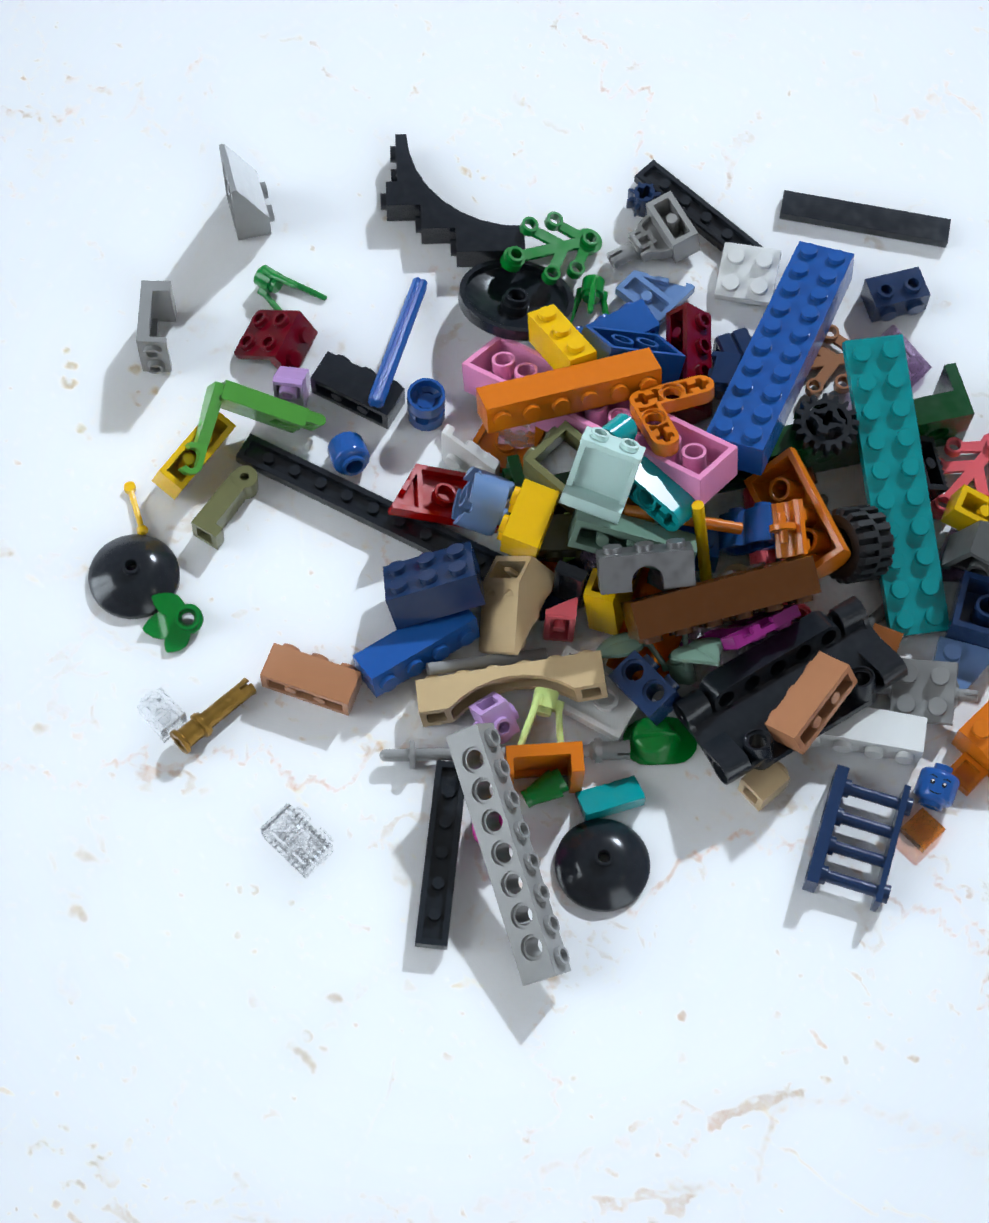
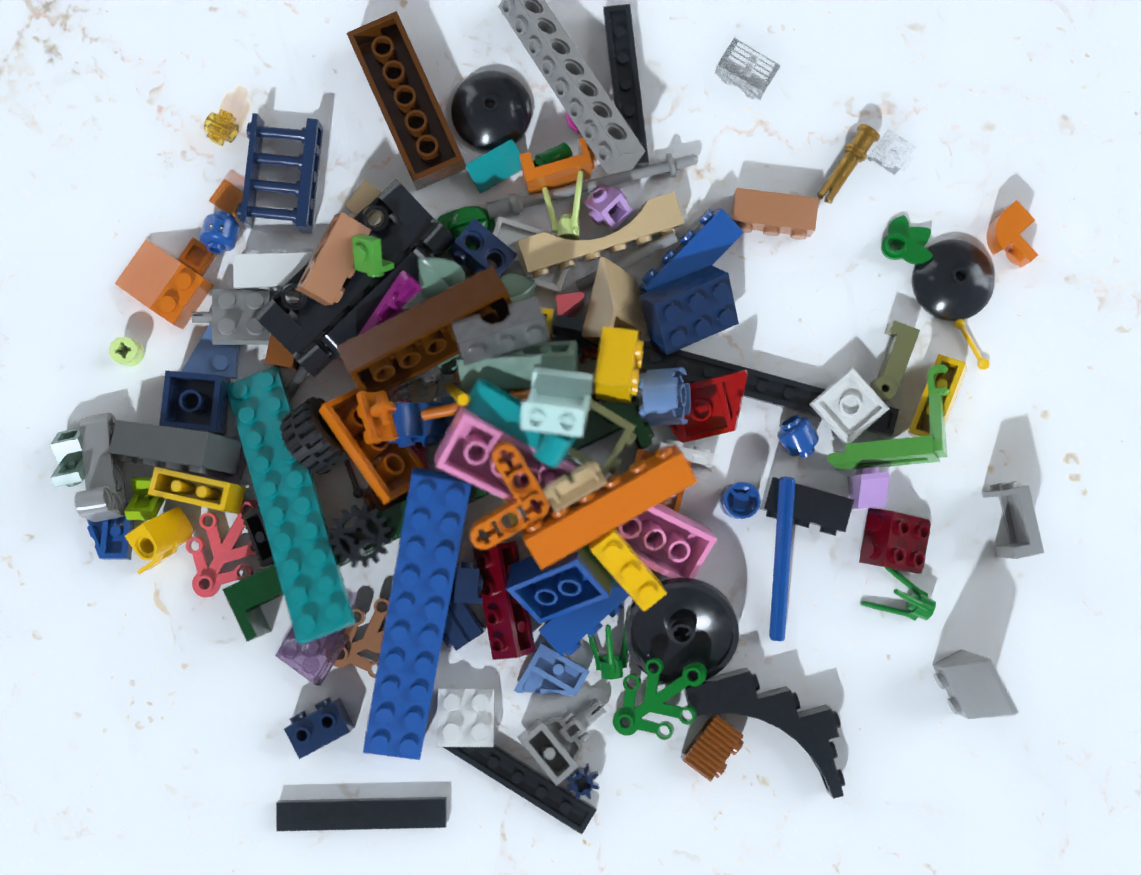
camera: 170 degrees right, 20 degrees up
(62, 607) = (1005, 233): none -> orange brick
(287, 467) = (849, 406): none -> white tile
(510, 201) = (712, 747): none -> dark orange brick
(599, 408) = (575, 485): none -> tan hinge
(700, 883) = (406, 100): none -> reddish brown brick
(770, 689) = (368, 256): none -> bright green bracket
(920, 903) = (221, 127): none -> clear yellow gear

